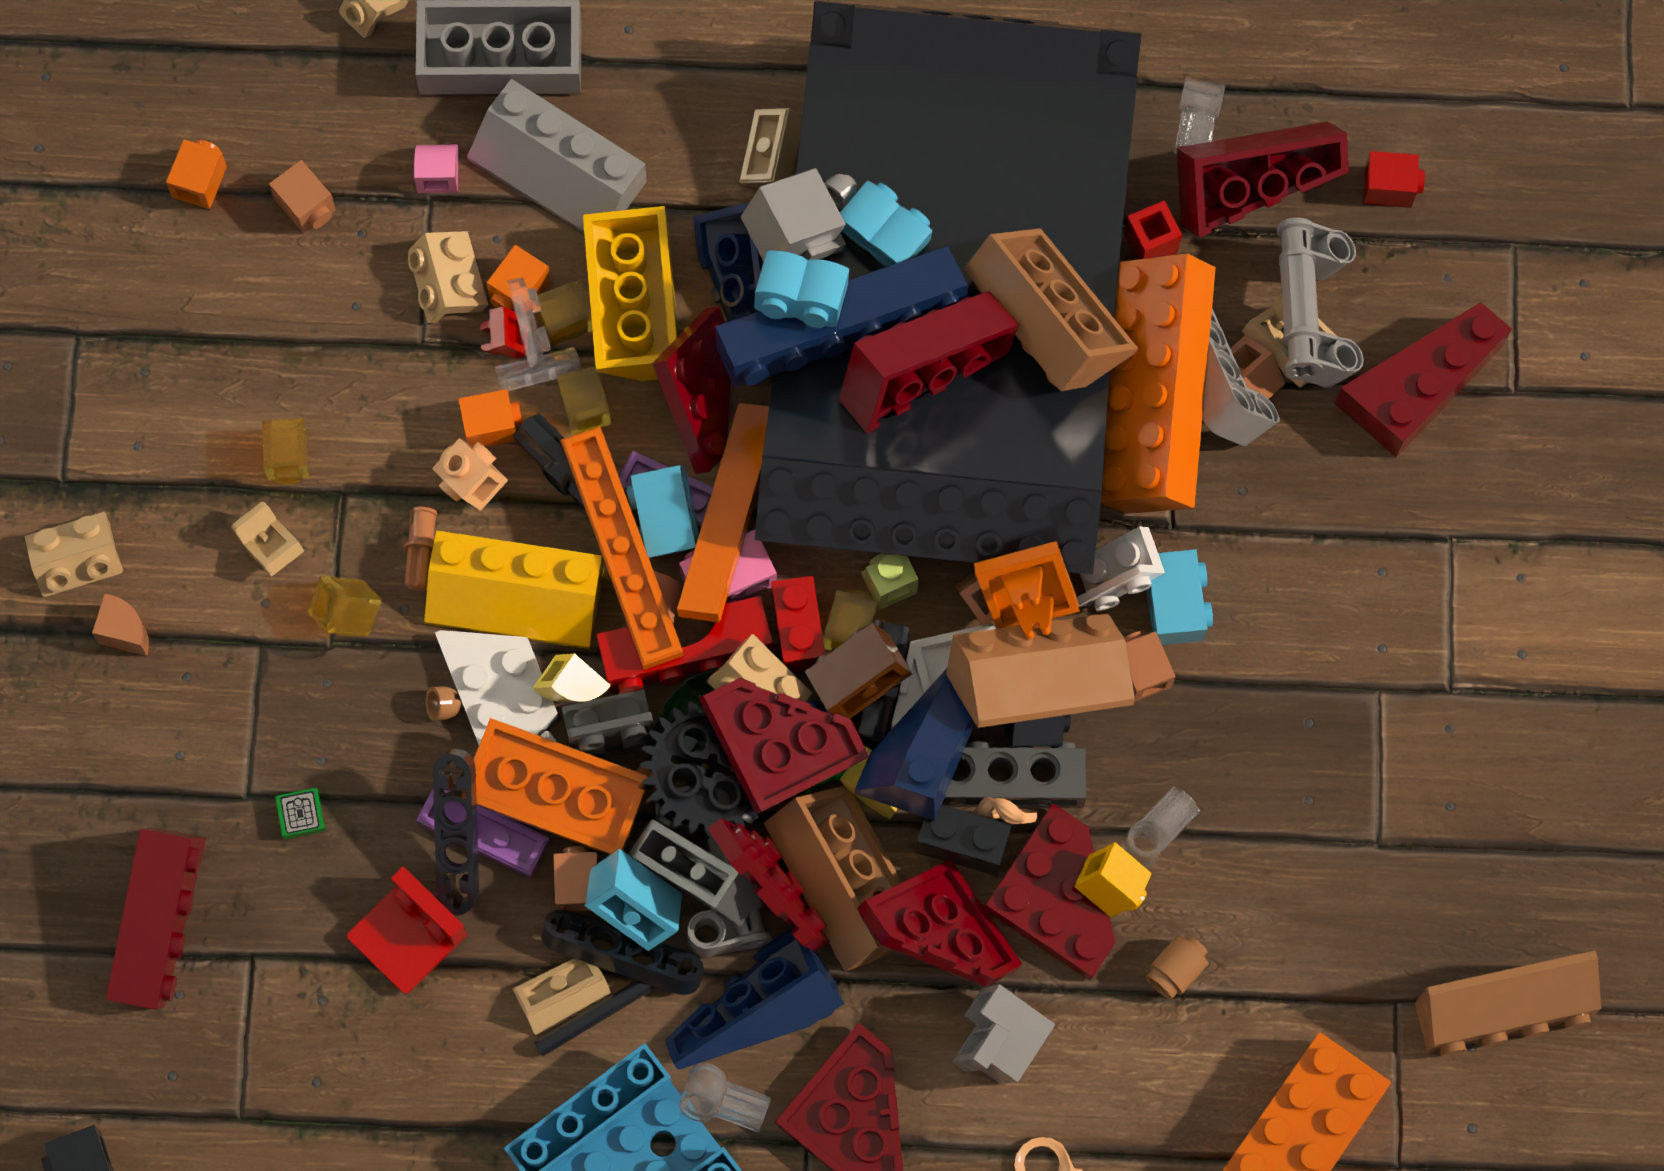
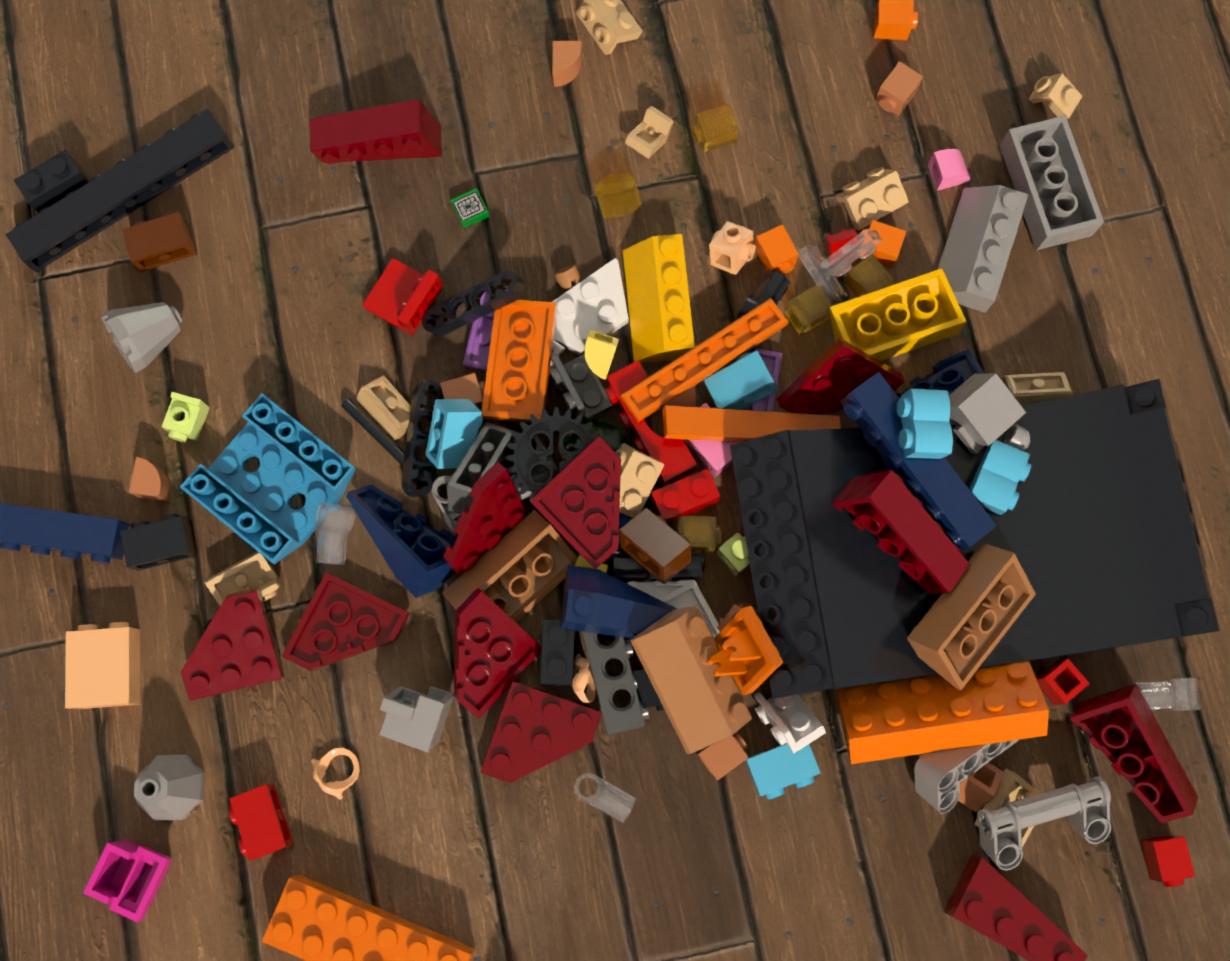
camera: 80 degrees right, 5 degrees up
(419, 547) = (688, 229): nougat axle -> none
(1113, 880) = (552, 770): yellow brick -> none
(1177, 966) = (502, 833): medium nougat brick -> none

